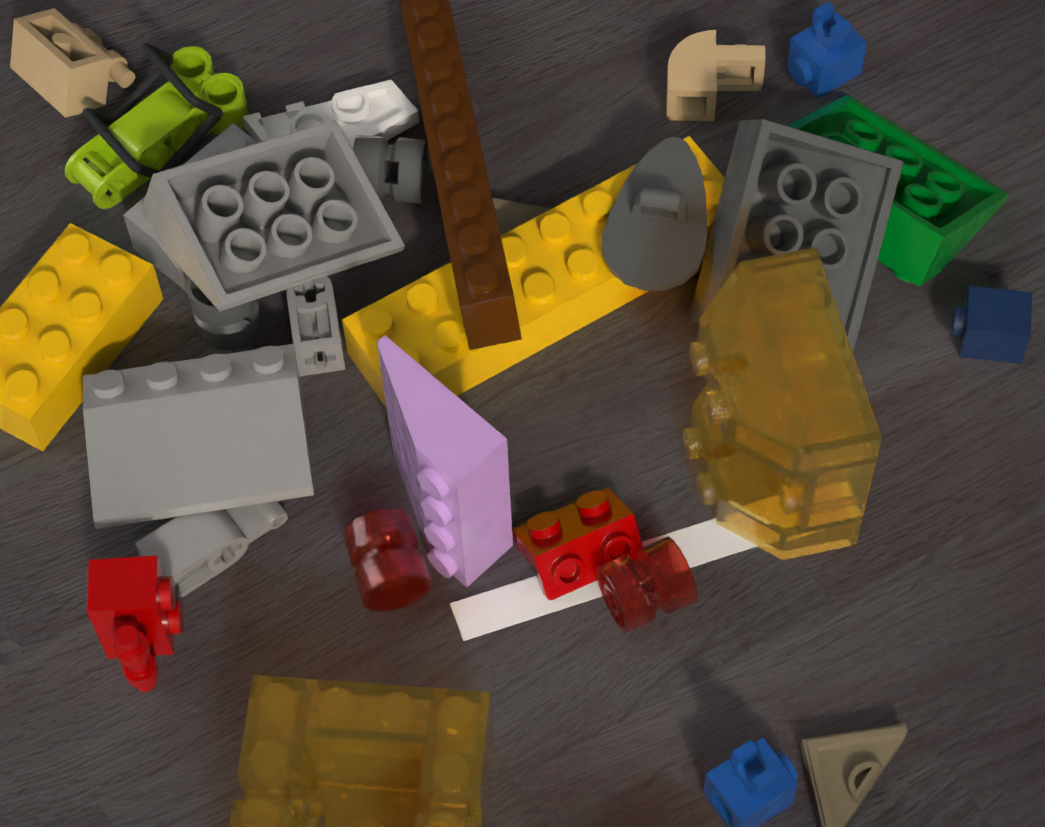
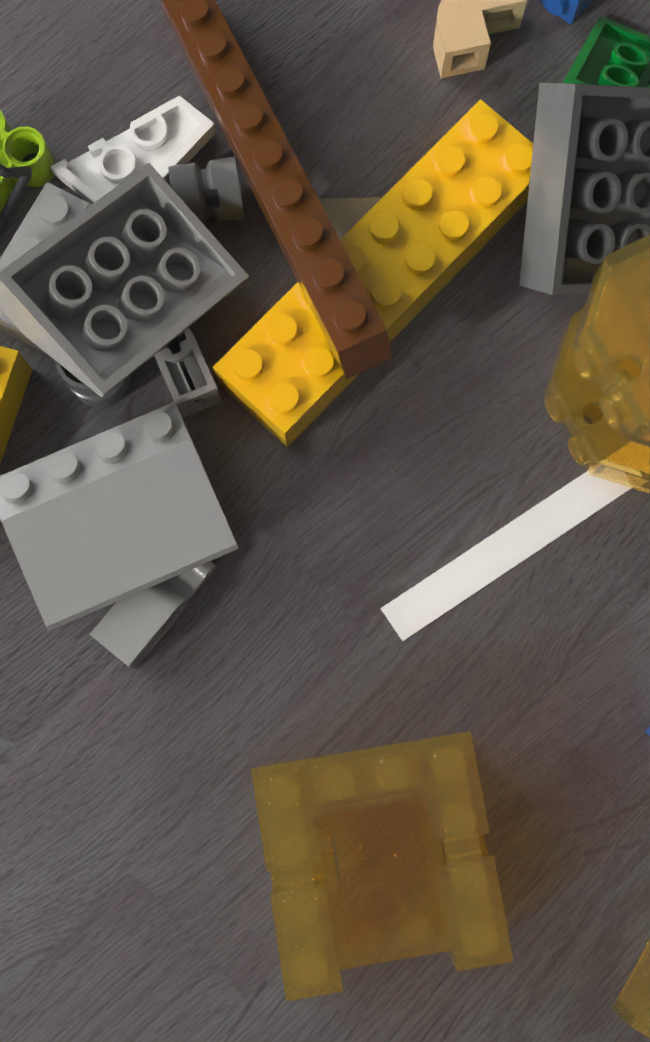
camera: 15 degrees left, 20 degrees up
(134, 614) = (107, 705): red brick -> none
(387, 560) = (329, 605): clear red wheel -> none
(450, 468) = (361, 507): lavender slope -> none
(577, 539) = (481, 526): red bracket -> none
(658, 220) = (479, 197): dark grey shield -> none
(664, 576) = (559, 553): clear red wheel -> none

